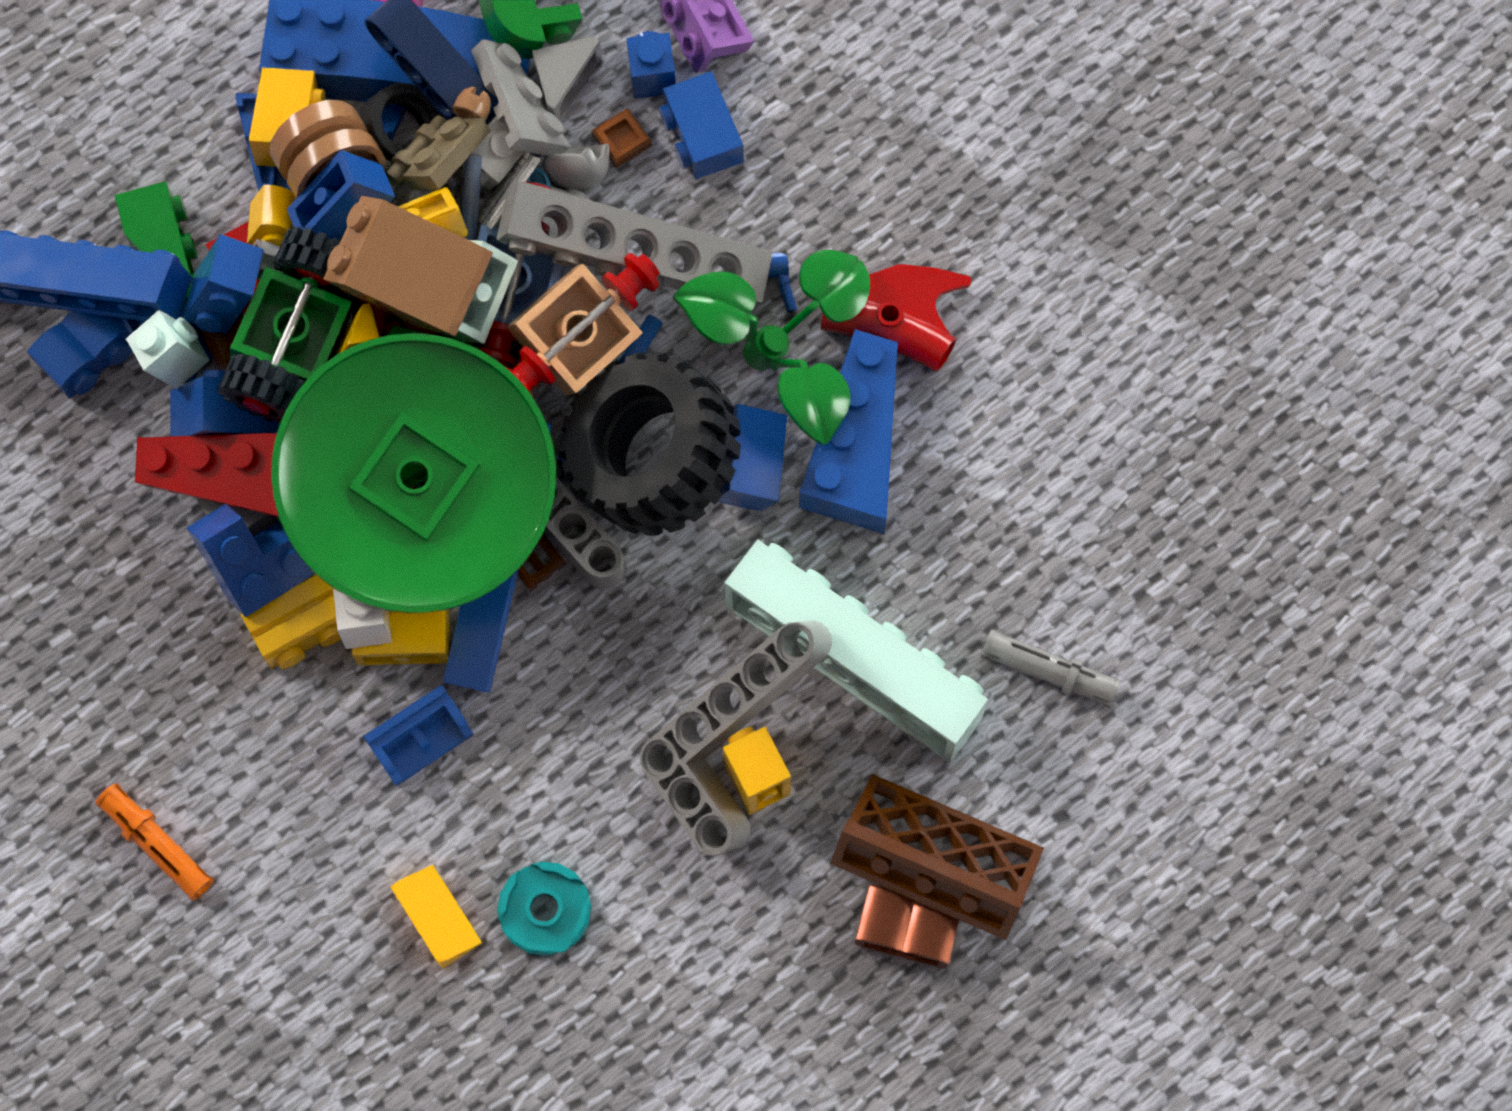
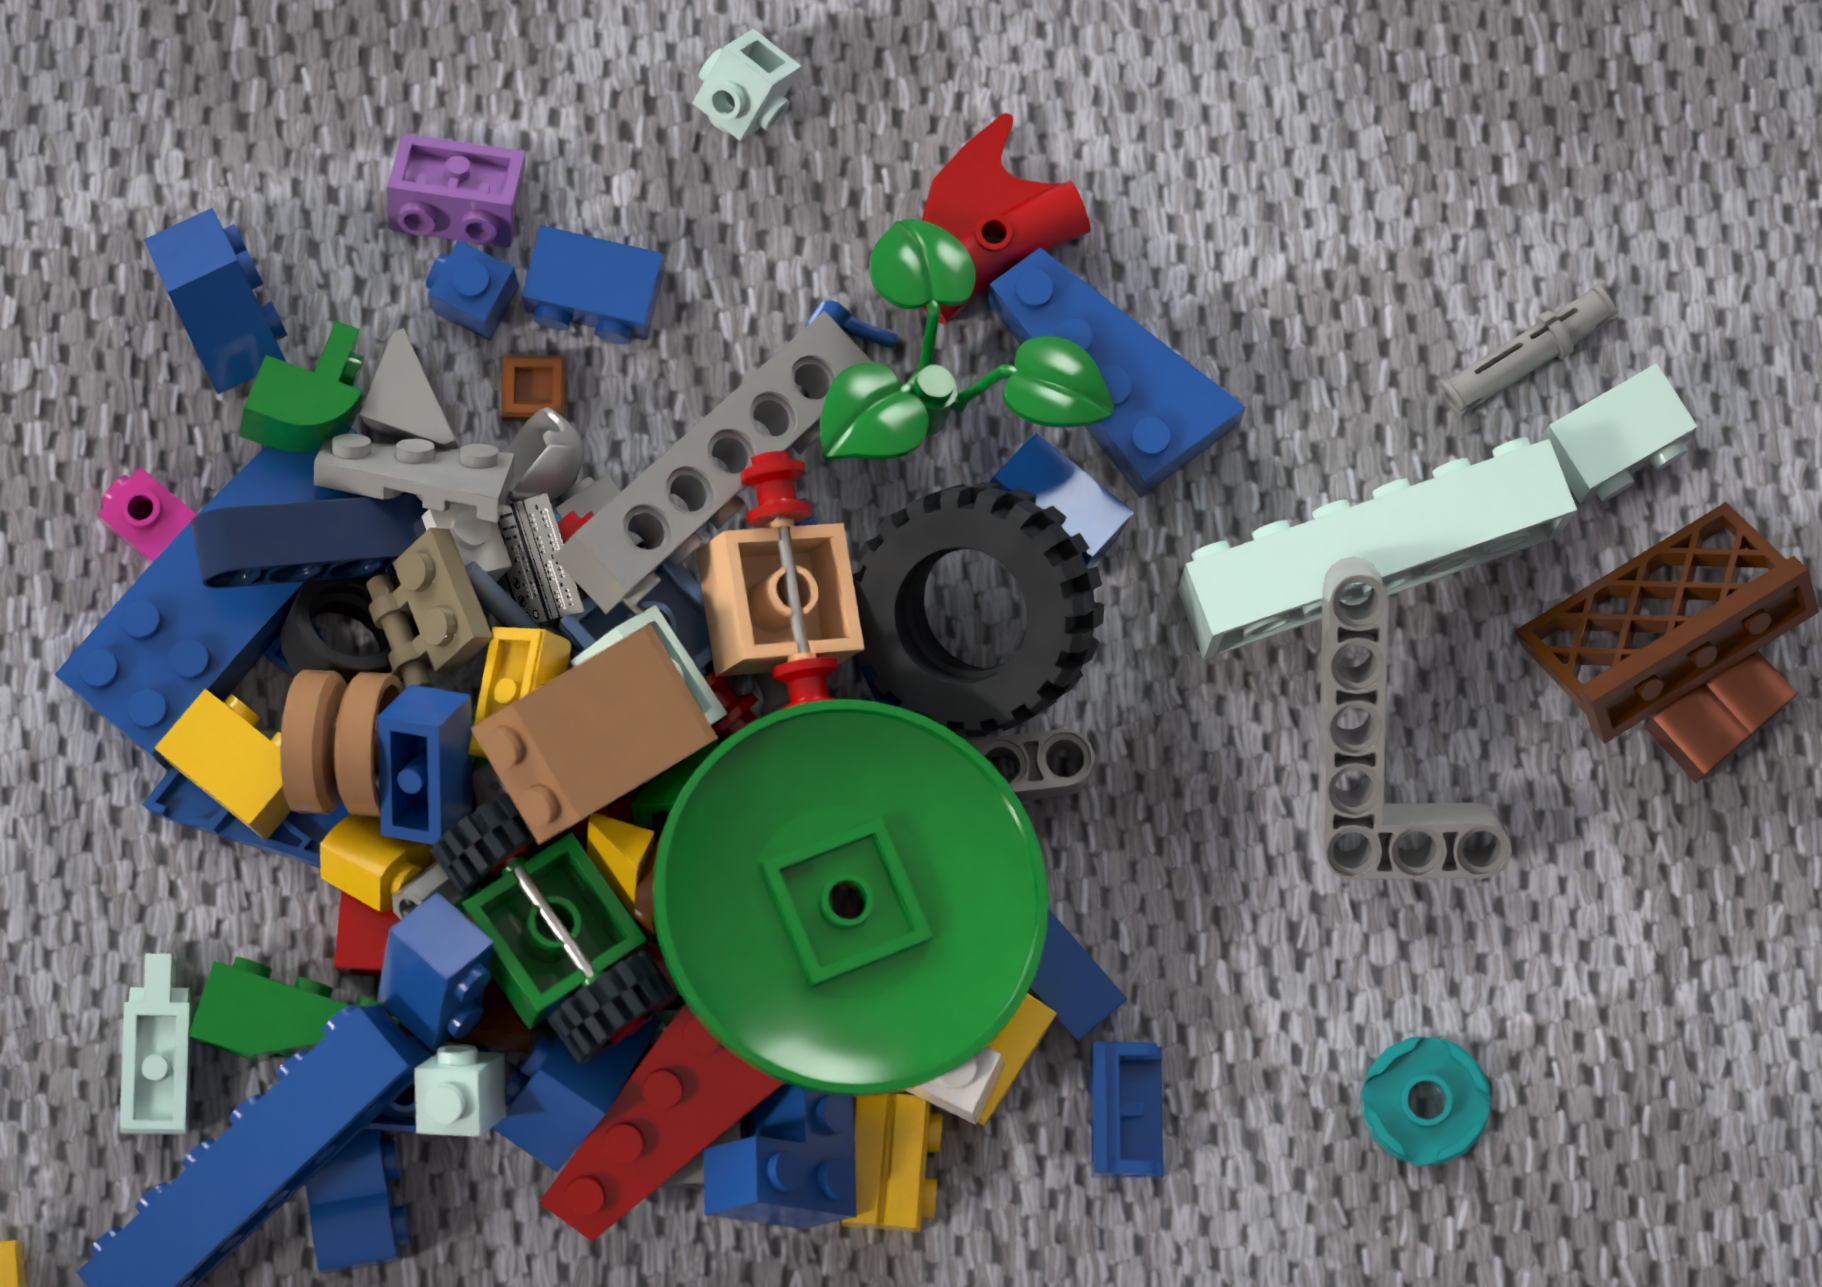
camera: 60 degrees left, 5 degrees up
(92, 193) = (156, 1053): none -> light aqua hinge
(436, 915) = (1352, 1229): yellow slope -> none
(472, 105) = (401, 531): medium nougat hinge -> none
(756, 769) = (1439, 752): yellow brick -> none
(879, 126) = (746, 85): none -> light aqua brick
(1034, 752) = (1620, 434): none -> light aqua brick

